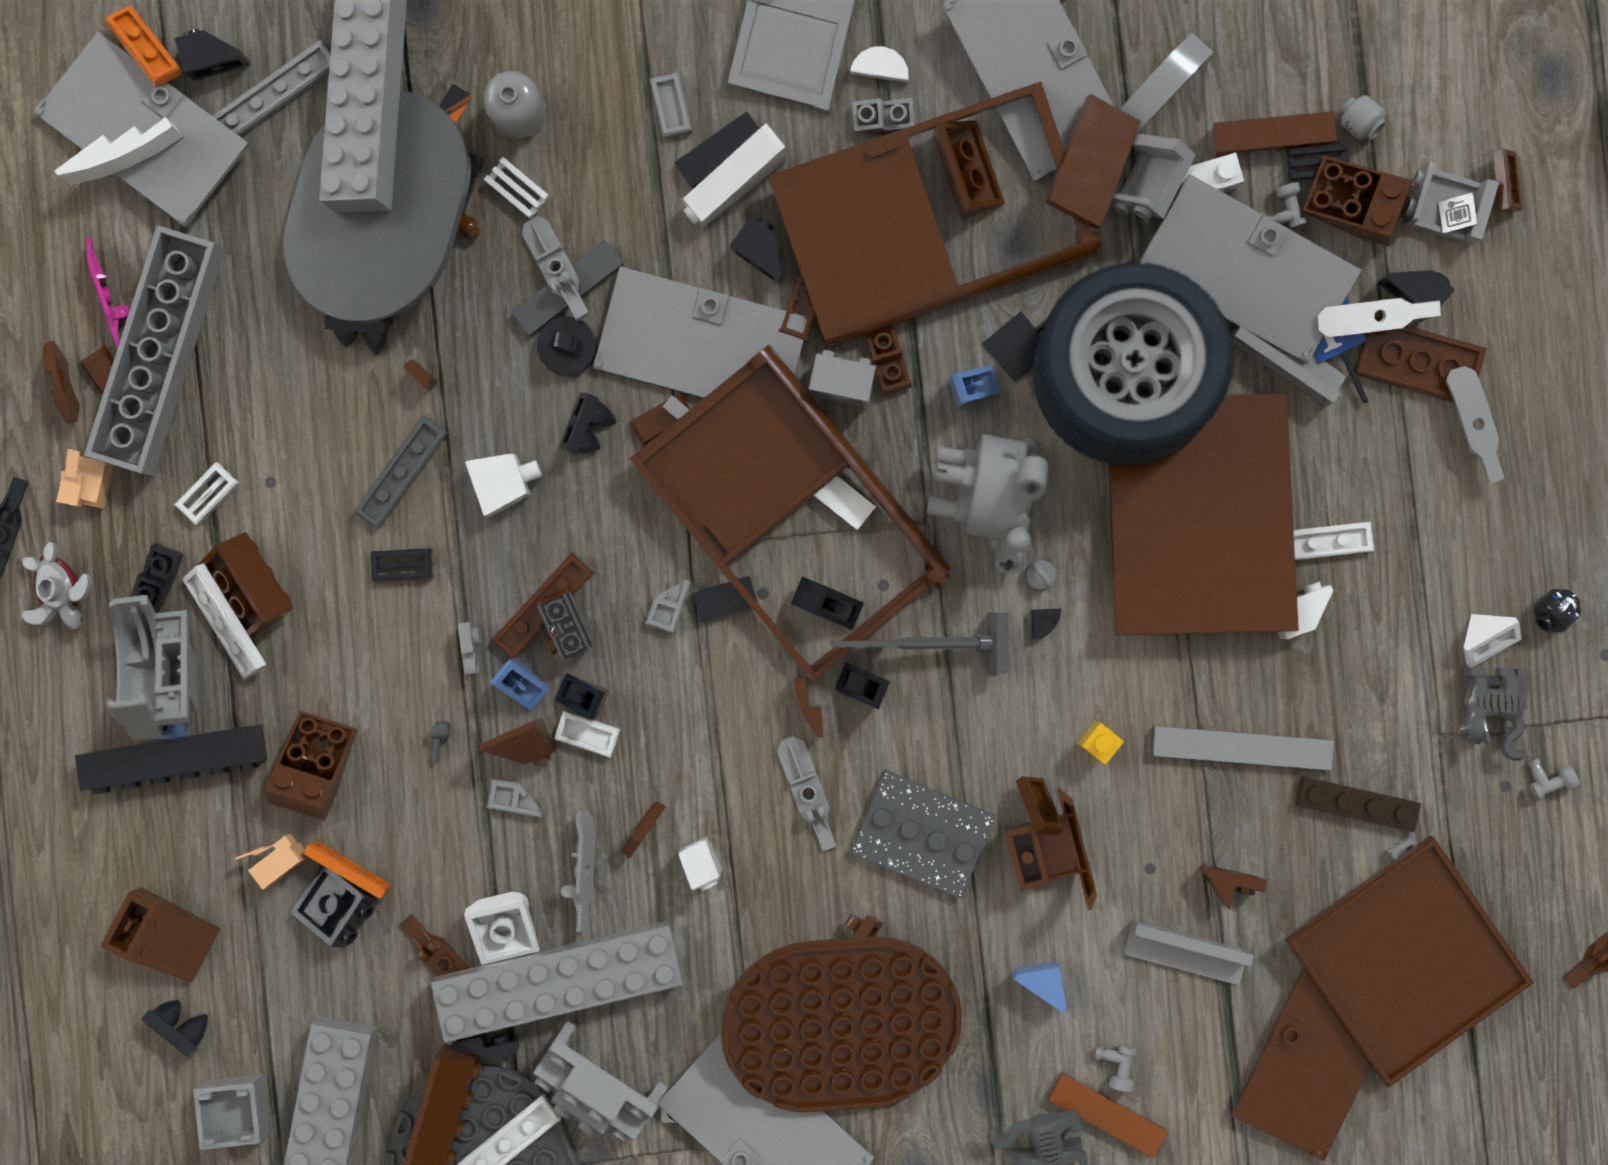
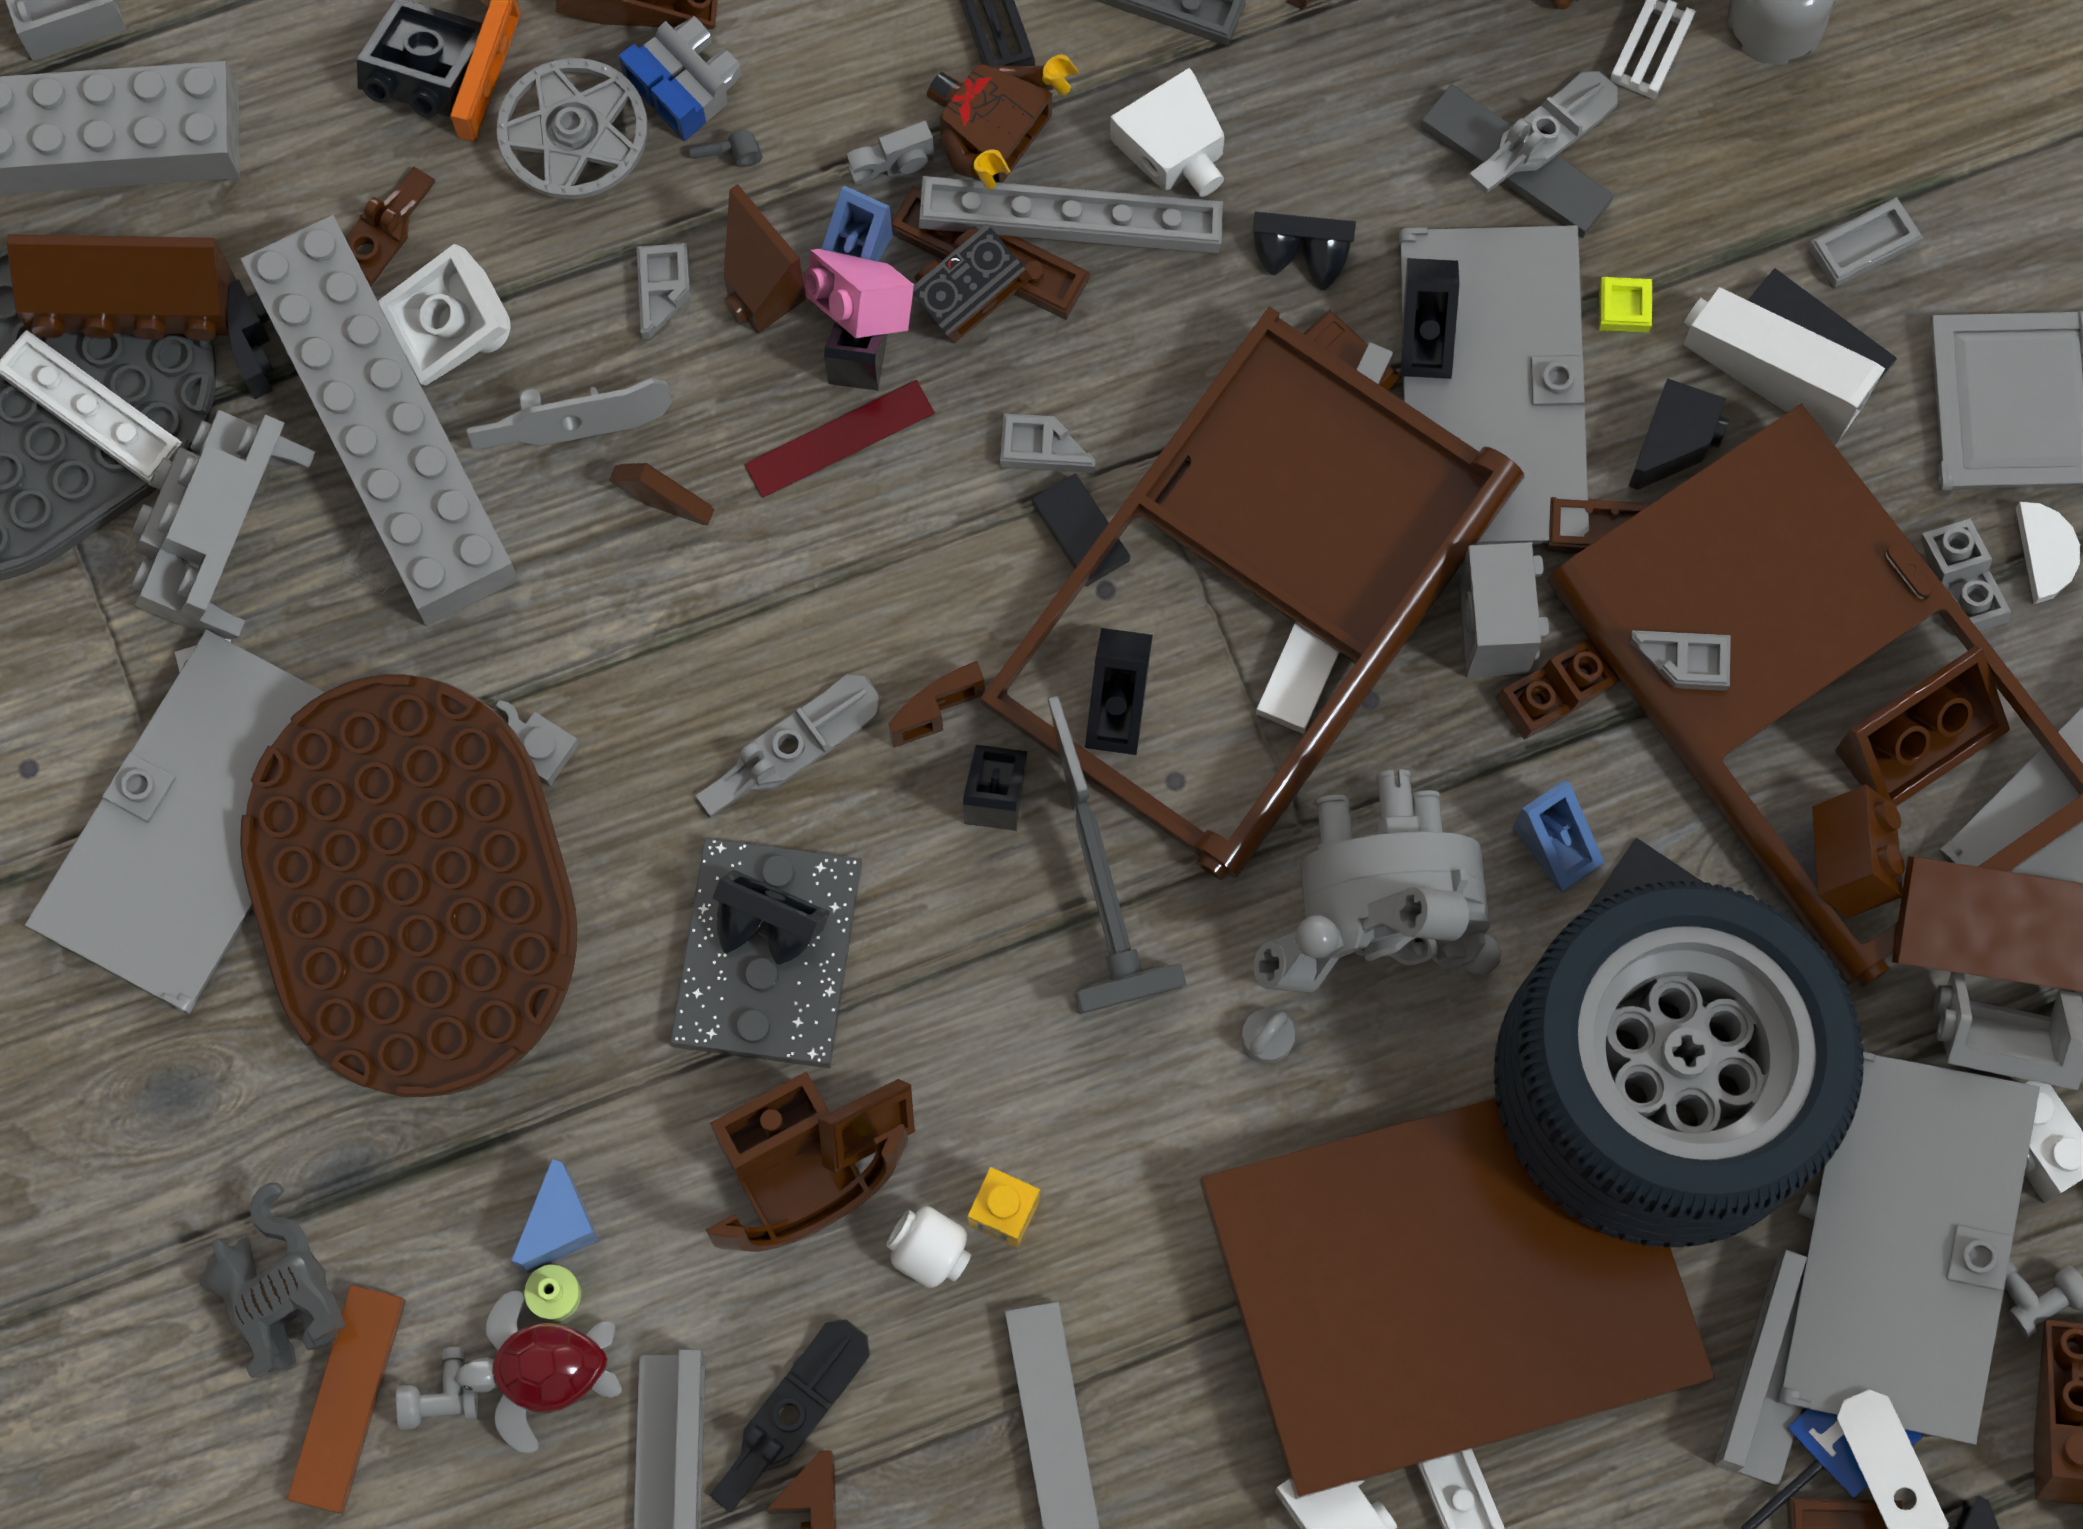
camera: 80 degrees right, 15 degrees down
(388, 760) = (677, 79): none -> hips
(404, 828) = (572, 128): none -> light grey wheel
(462, 582) = (996, 115): none -> reddish brown torso
(534, 553) = (1072, 214): none -> light grey tile
(554, 688) = (859, 293): none -> bright pink slope
(566, 346) = (1422, 182): black tile -> none
(587, 734) = (797, 372): white tile -> none
(633, 719) = (839, 438): none -> dark red sticker
(656, 367) = (1429, 318): none -> black slope
(672, 253) = (1625, 304): none -> neon yellow tile
(700, 864) = (625, 594): white slope -> none
(771, 932) = (544, 741): none -> light grey plate
(864, 928) = (587, 890): reddish brown tile -> none
(899, 285) = (1687, 658): none -> light grey tile
(900, 837) = (748, 902): none -> black tile
(1030, 227) = (1858, 851): none -> reddish brown brick
(1043, 621) = (1188, 1063): black tile -> none
(1078, 986) = (558, 1304): none -> yellowish green tile
(1110, 788) = (928, 1247): none -> white head
(1120, 1011) = (537, 1369): none -> animal
(1164, 868) = (811, 1387): none -> black piece

